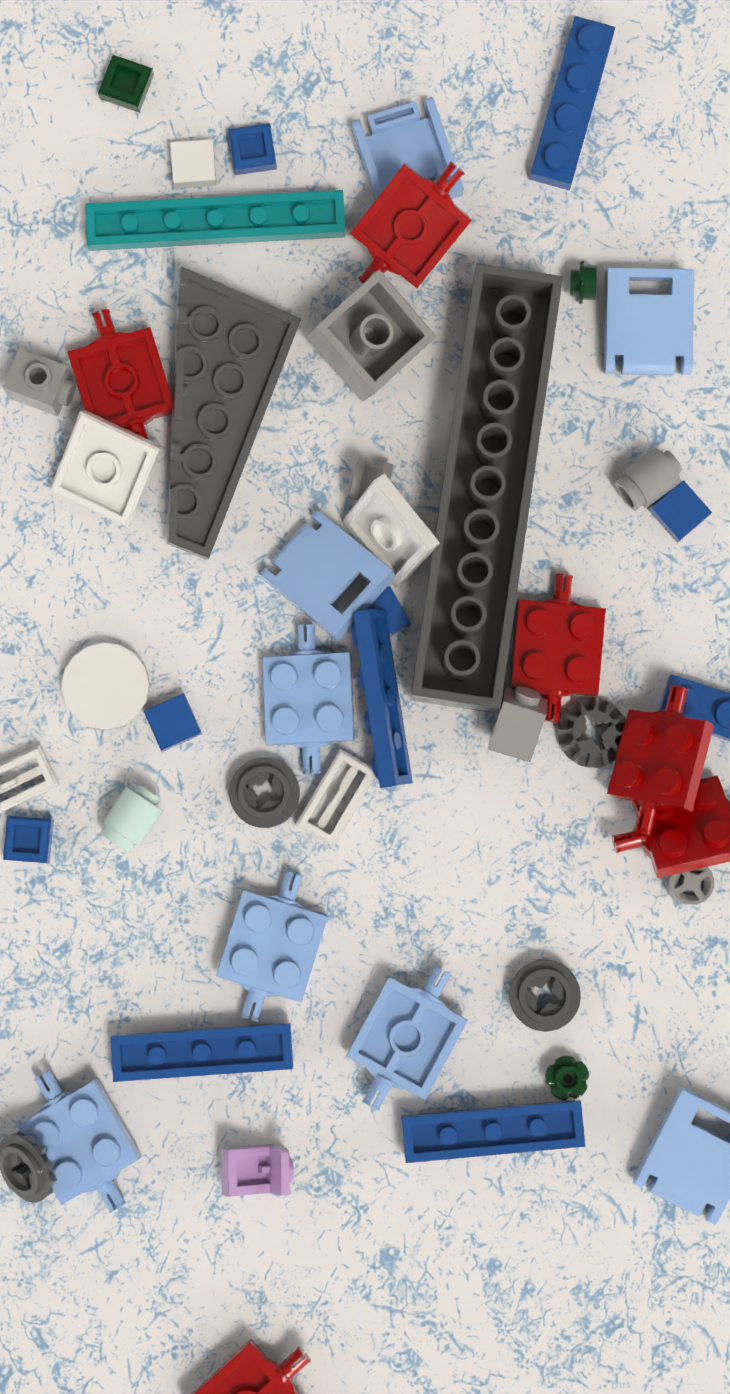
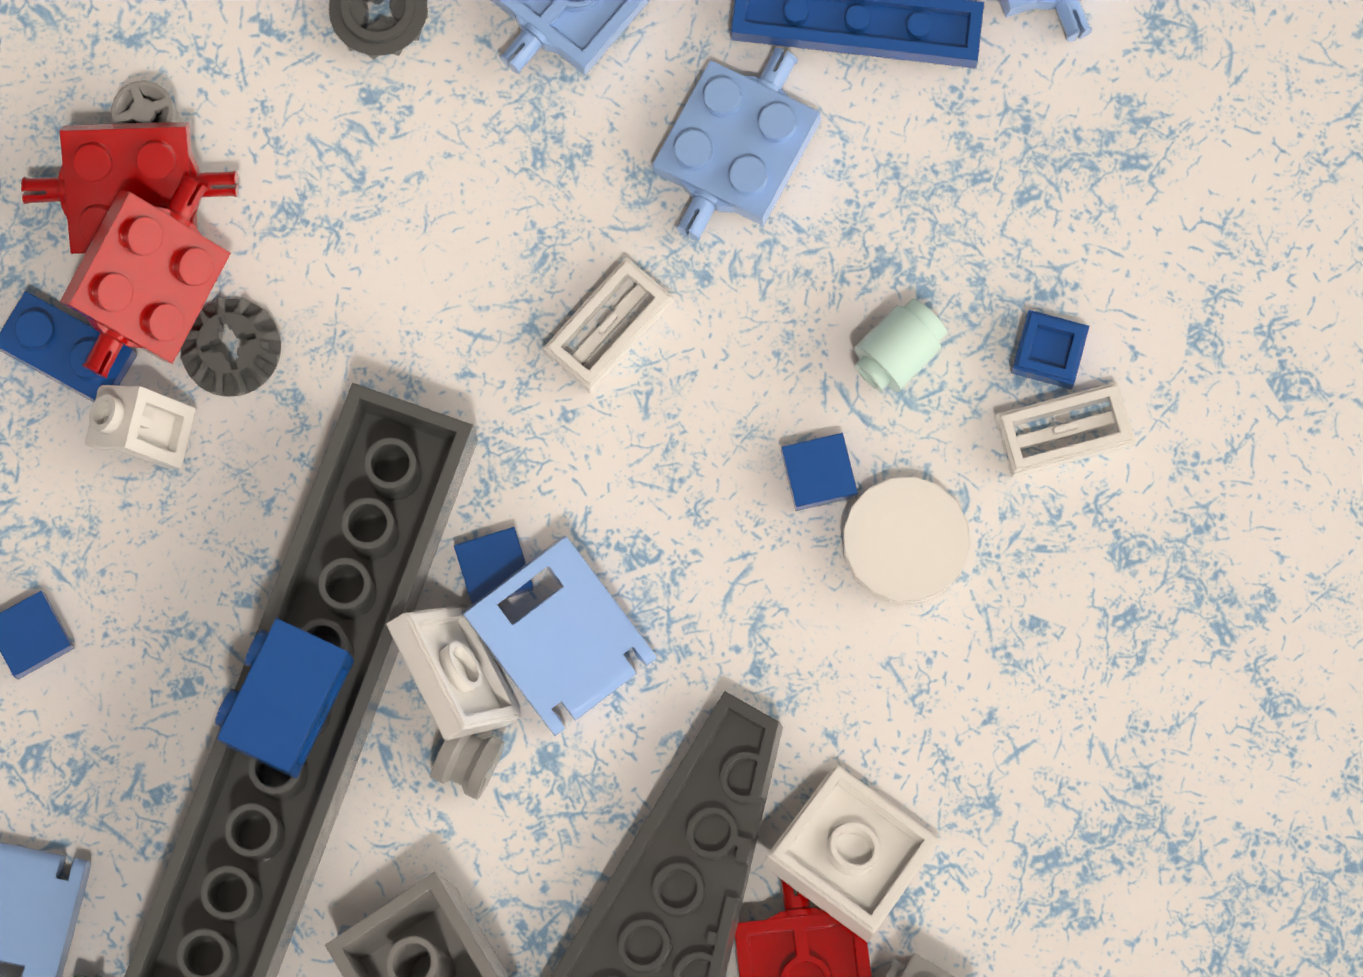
camera: 165 degrees left, 5 degrees down
(257, 773) = (702, 321): dark grey gear -> none
(308, 699) = (620, 467): light blue plate -> none
(380, 686) = (515, 463): blue plate -> none
(496, 479) = (283, 697): none -> blue brick
(518, 723) = (328, 364): light grey brick -> none
(557, 647) = (251, 471): red plate -> none
(640, 662) = (140, 424): none -> white bracket
(649, 479) = (63, 686): light grey brick -> none

